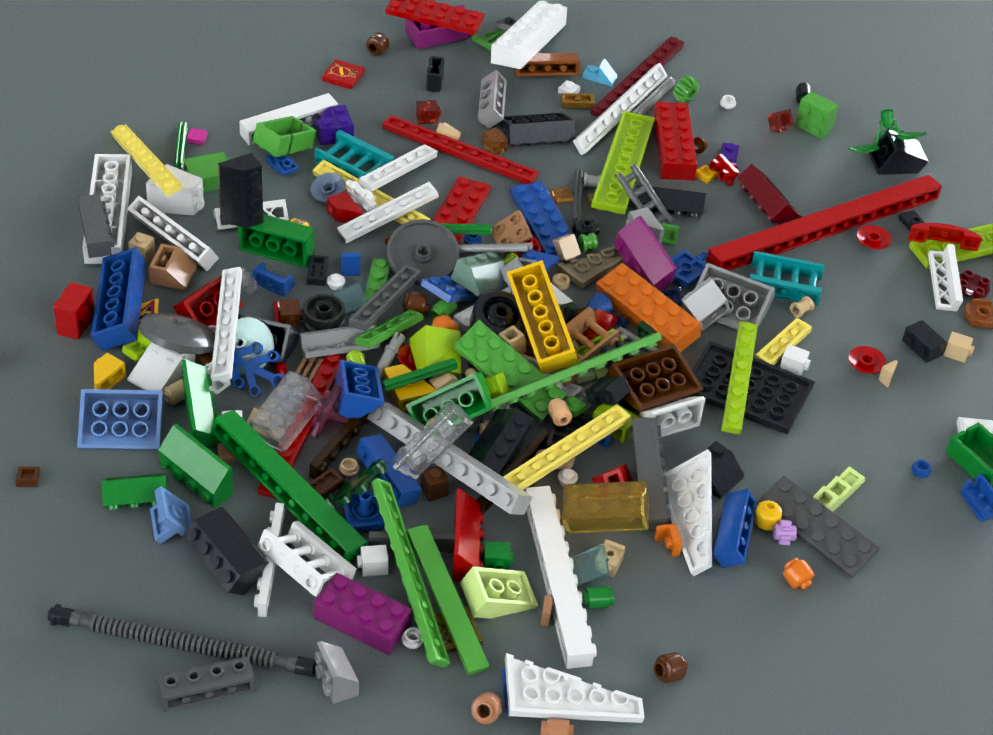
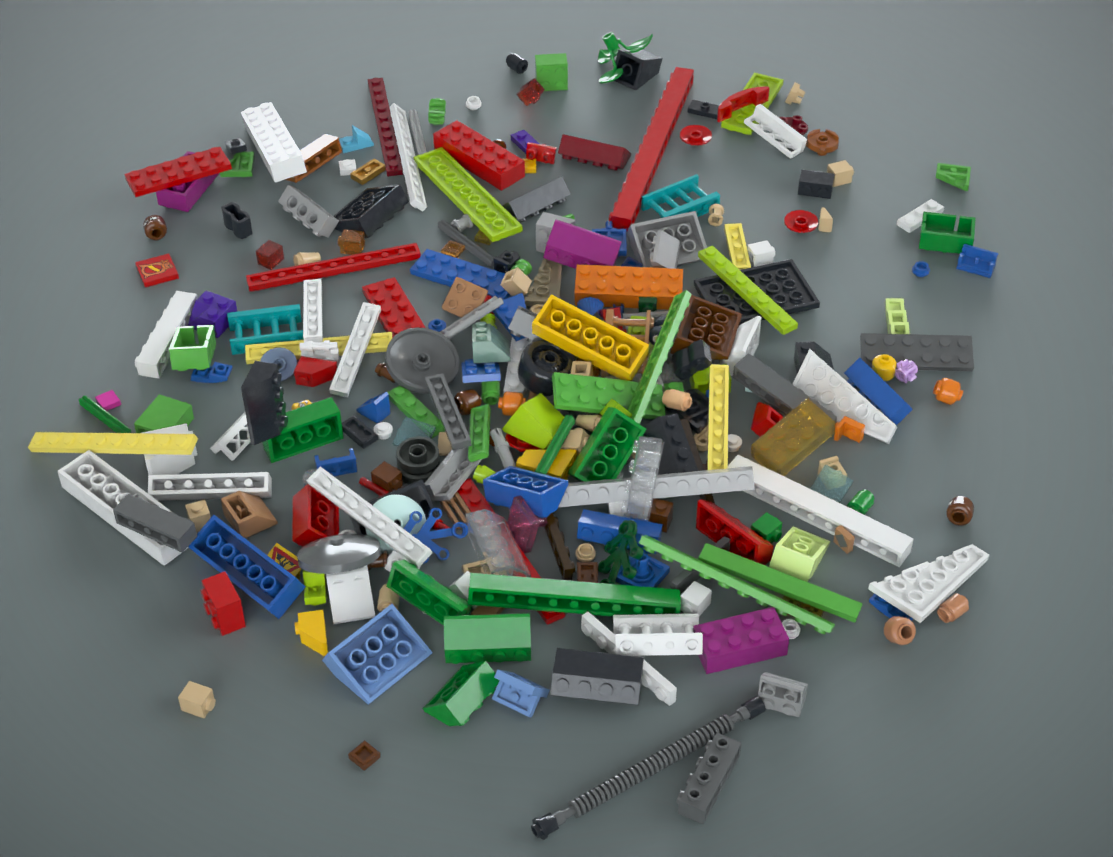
camera: 40 degrees left, 0 degrees up
(469, 229) = (433, 317): green axle -> none
(646, 187) = (518, 200): dark grey bar -> none

